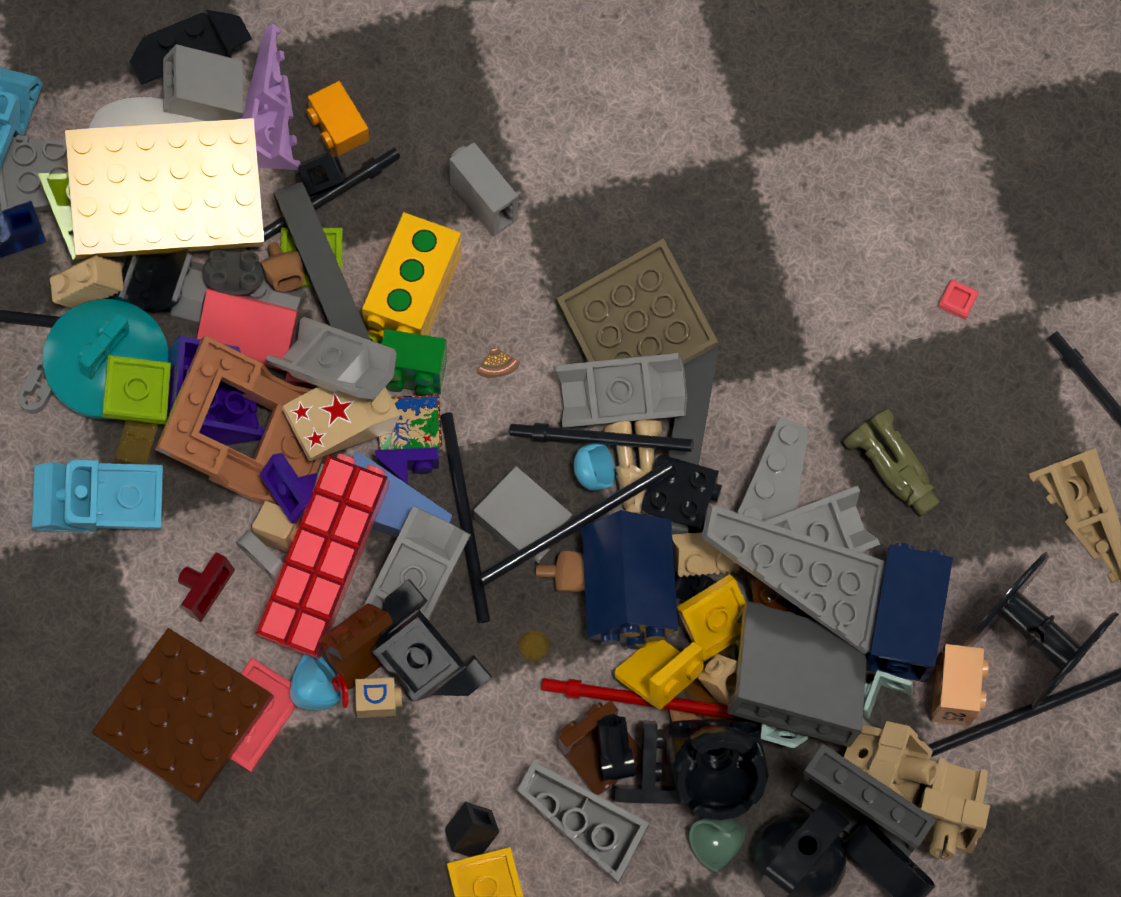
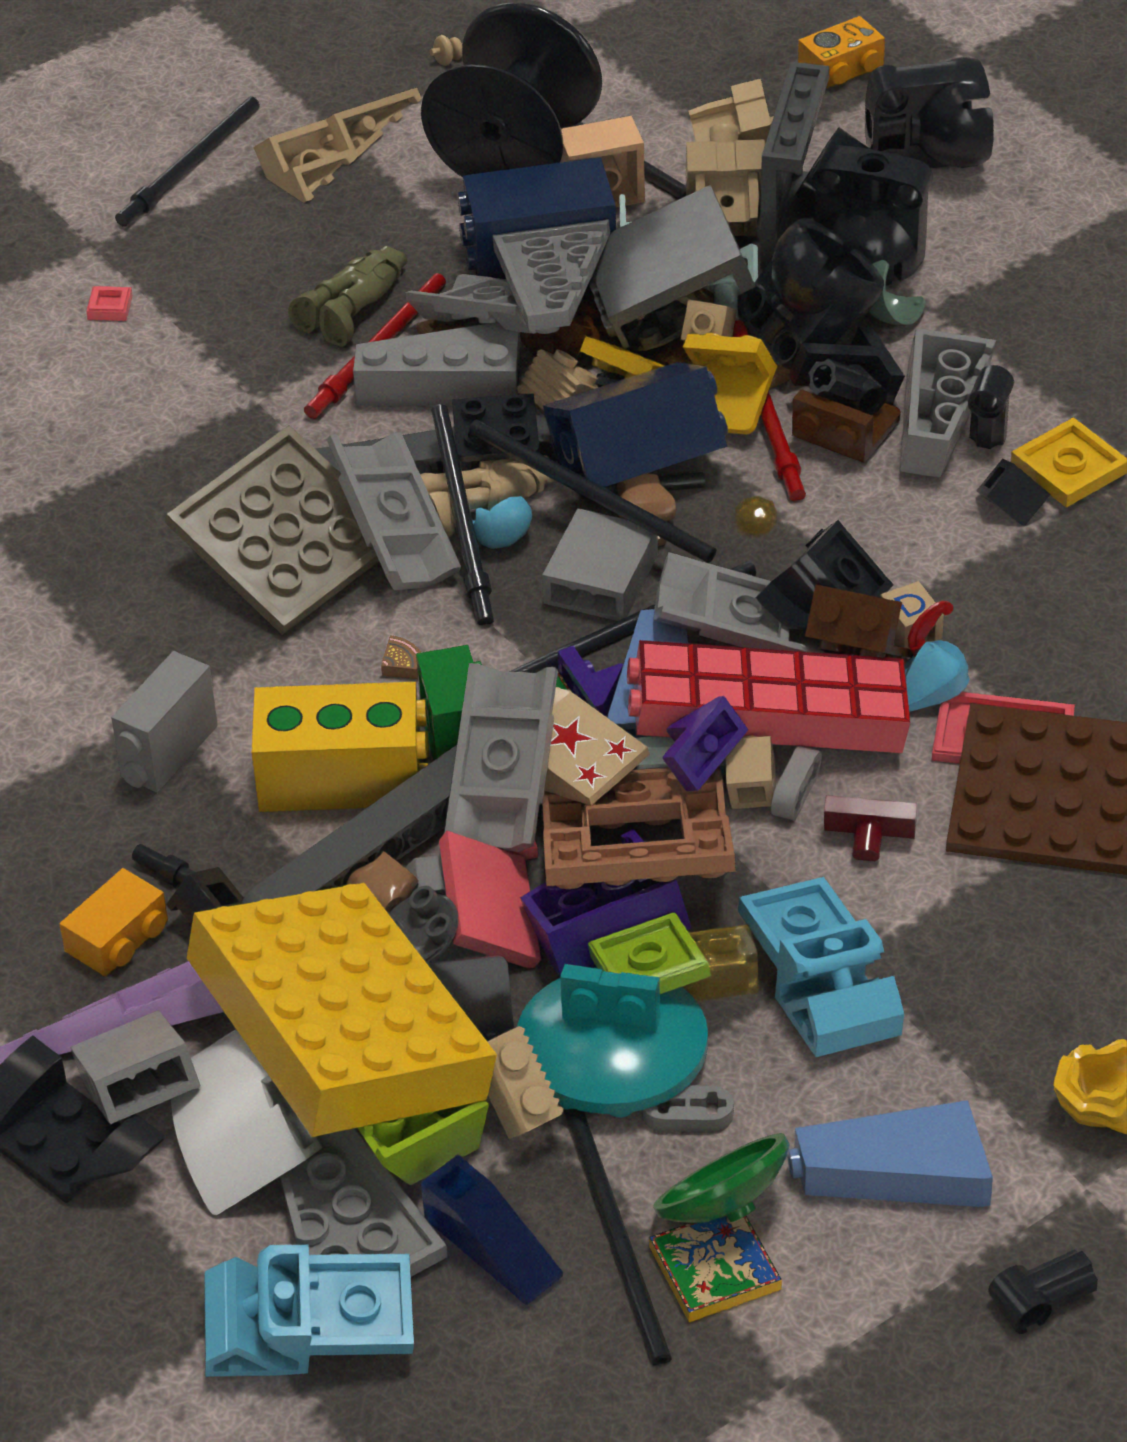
camera: 105 degrees left, 25 degrees down
(551, 843) = (990, 406): none -> black piece
(796, 415) = (336, 385): none -> red bar

